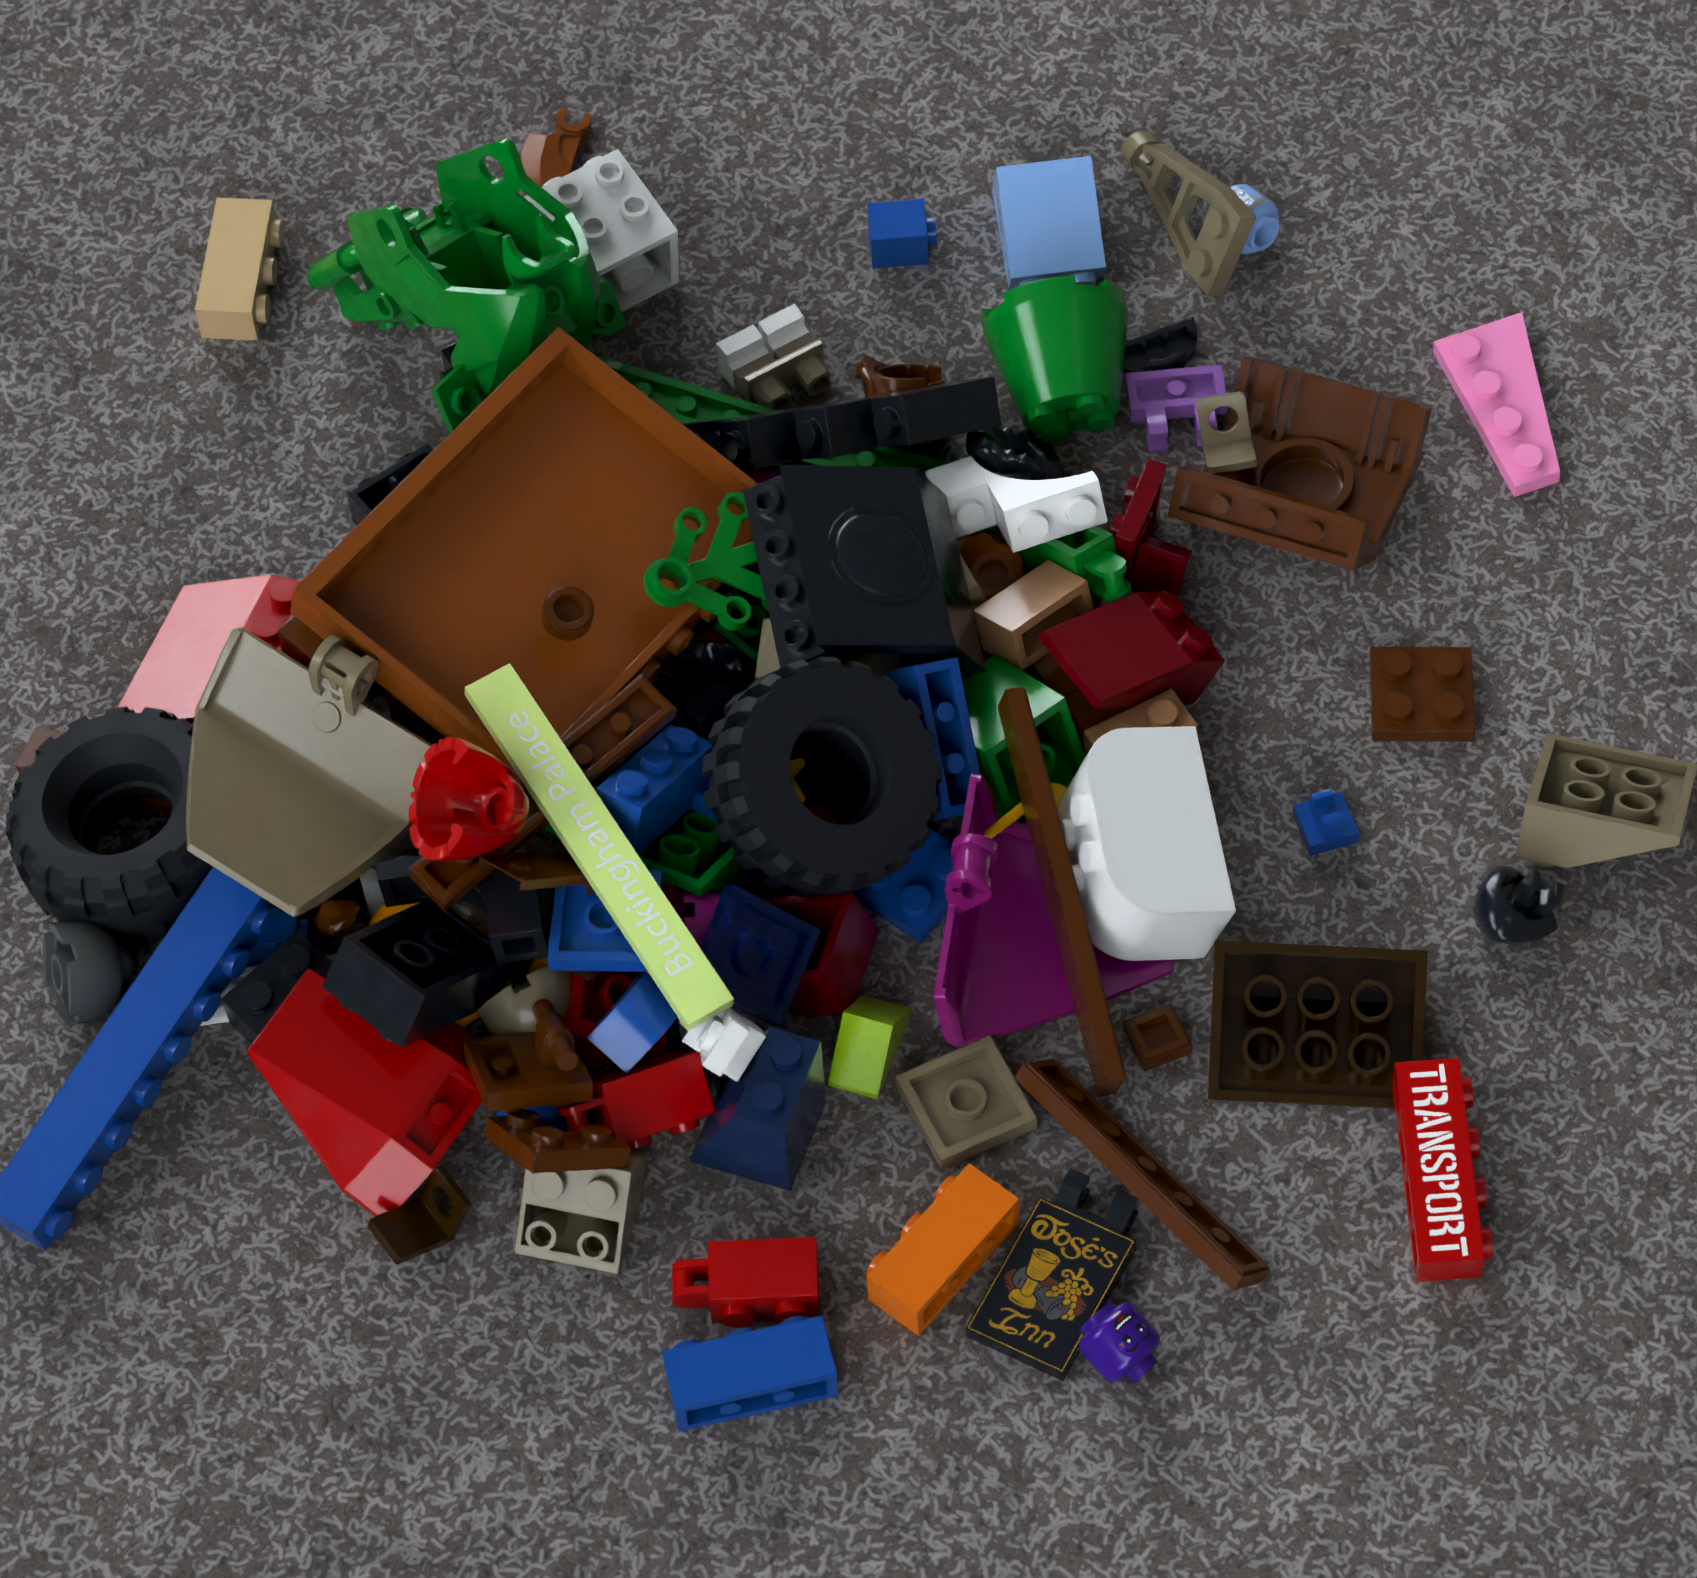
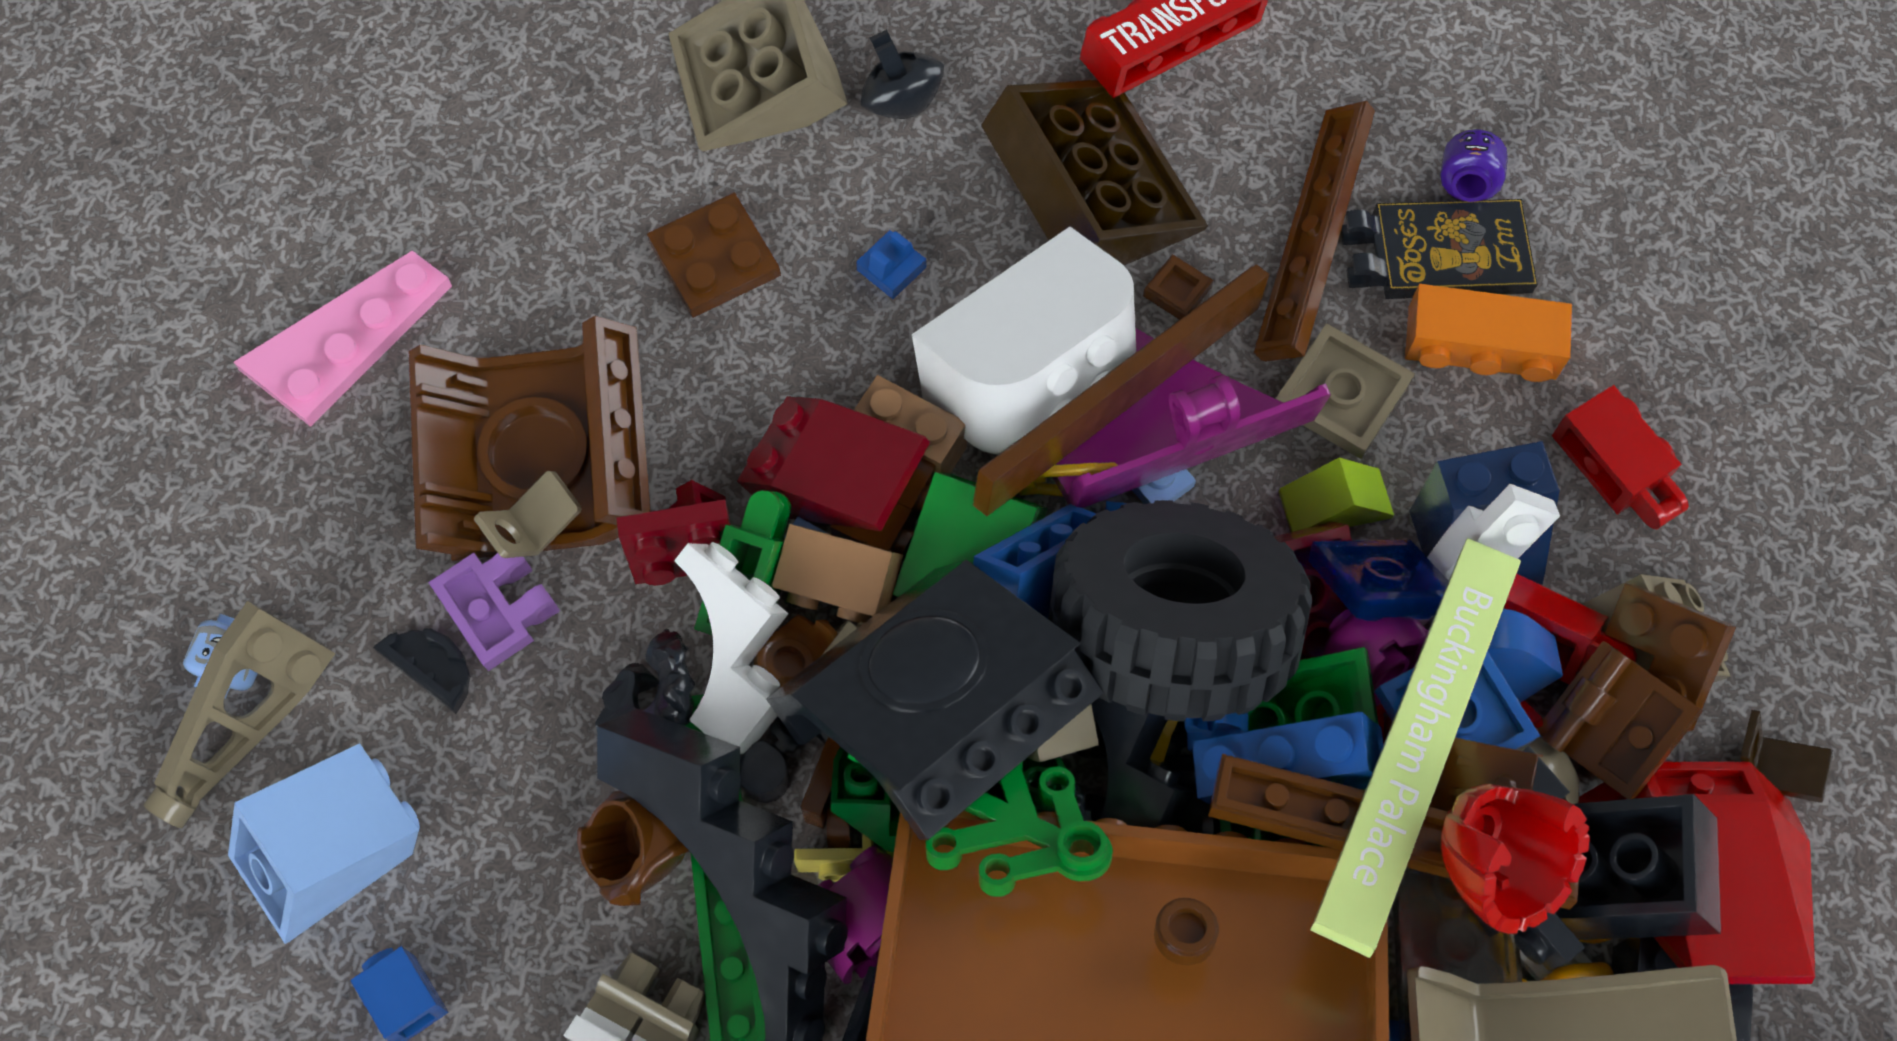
camera: 125 degrees left, 10 degrees up
(750, 1372) = (1701, 414): blue brick -> none
(1061, 353) = (509, 712): green cone -> none

